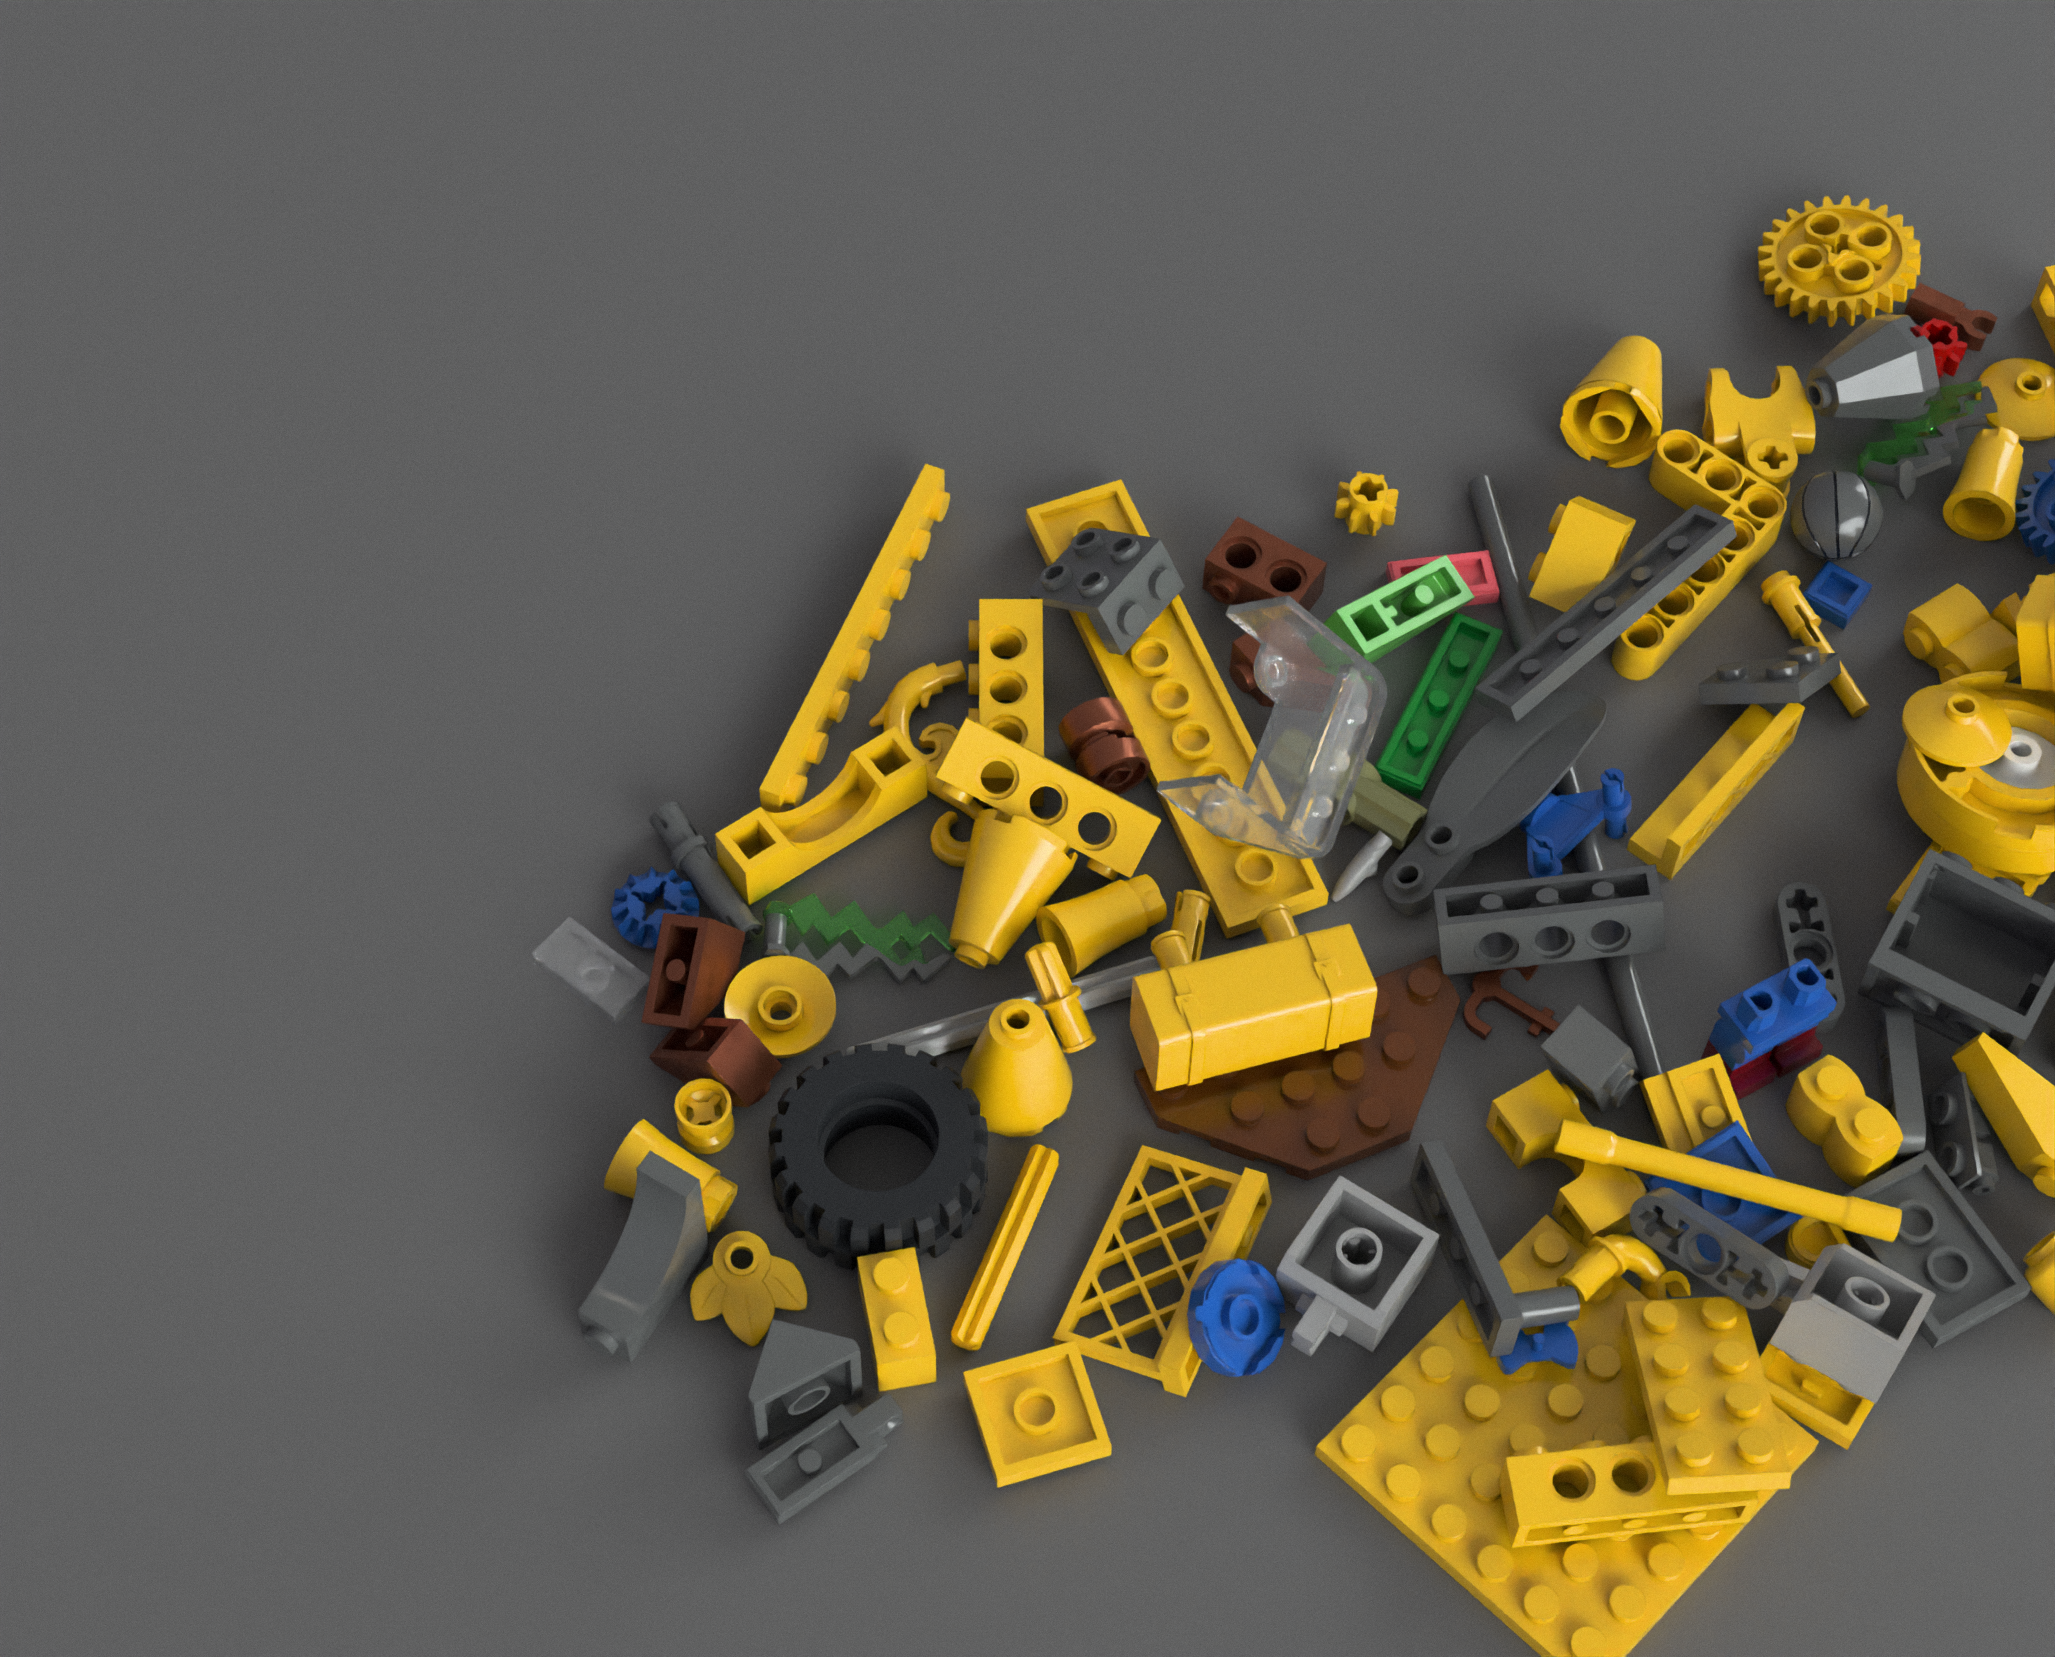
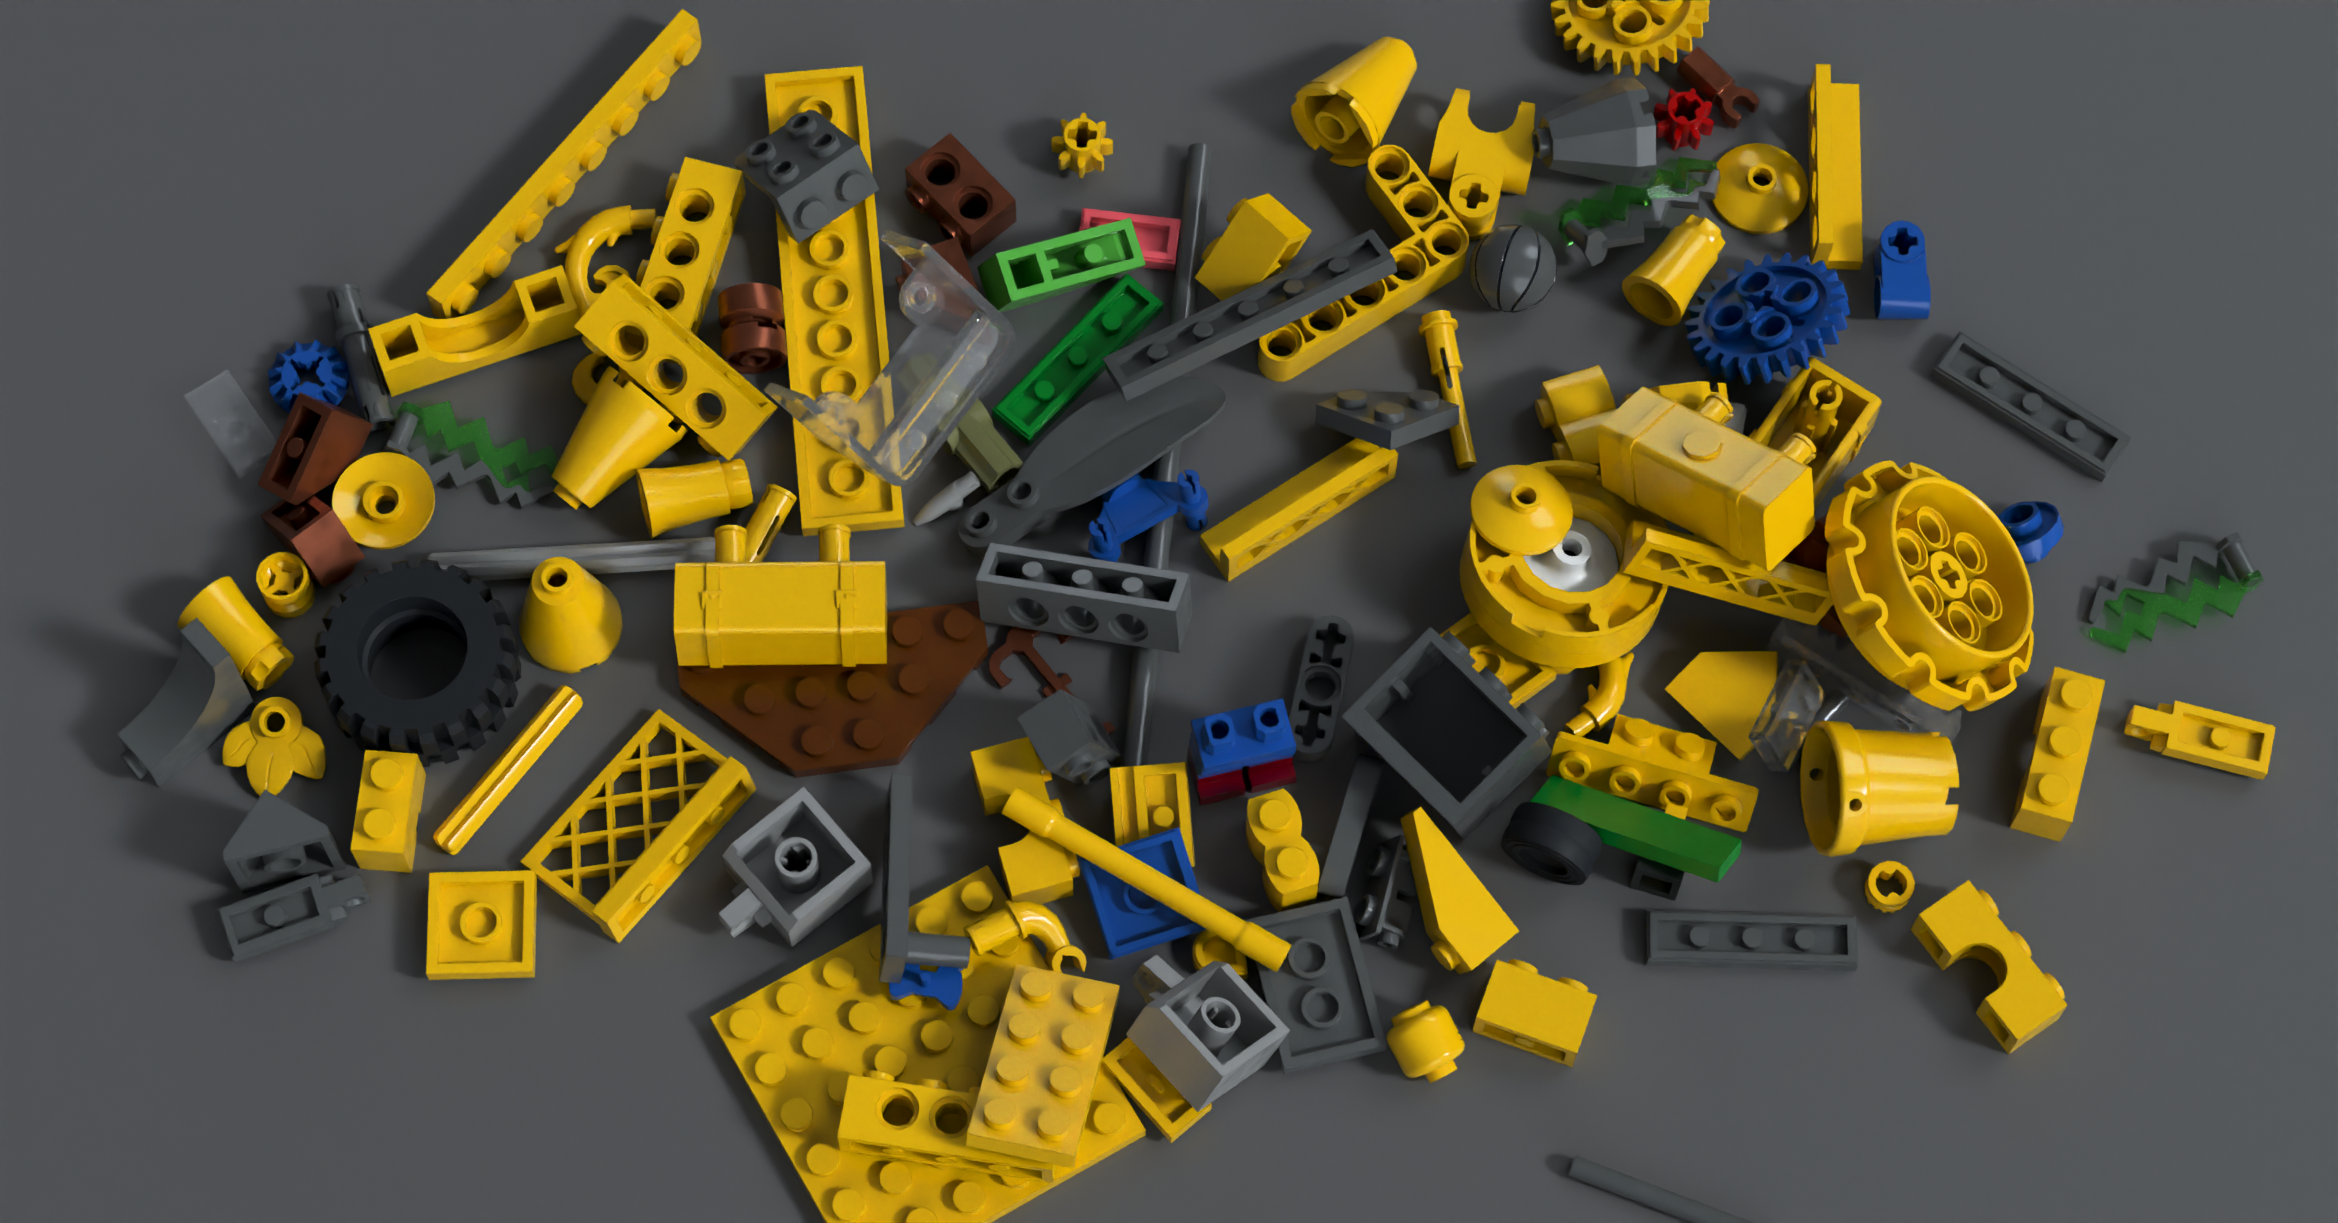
camera: 15 degrees right, 10 degrees up
(1059, 997) = (626, 556): yellow axle -> none
(1236, 1317) = (676, 887): blue tile -> none
(1732, 1243) = (1123, 963): dark grey beam -> none
(1836, 594) = (1491, 343): blue tile -> none

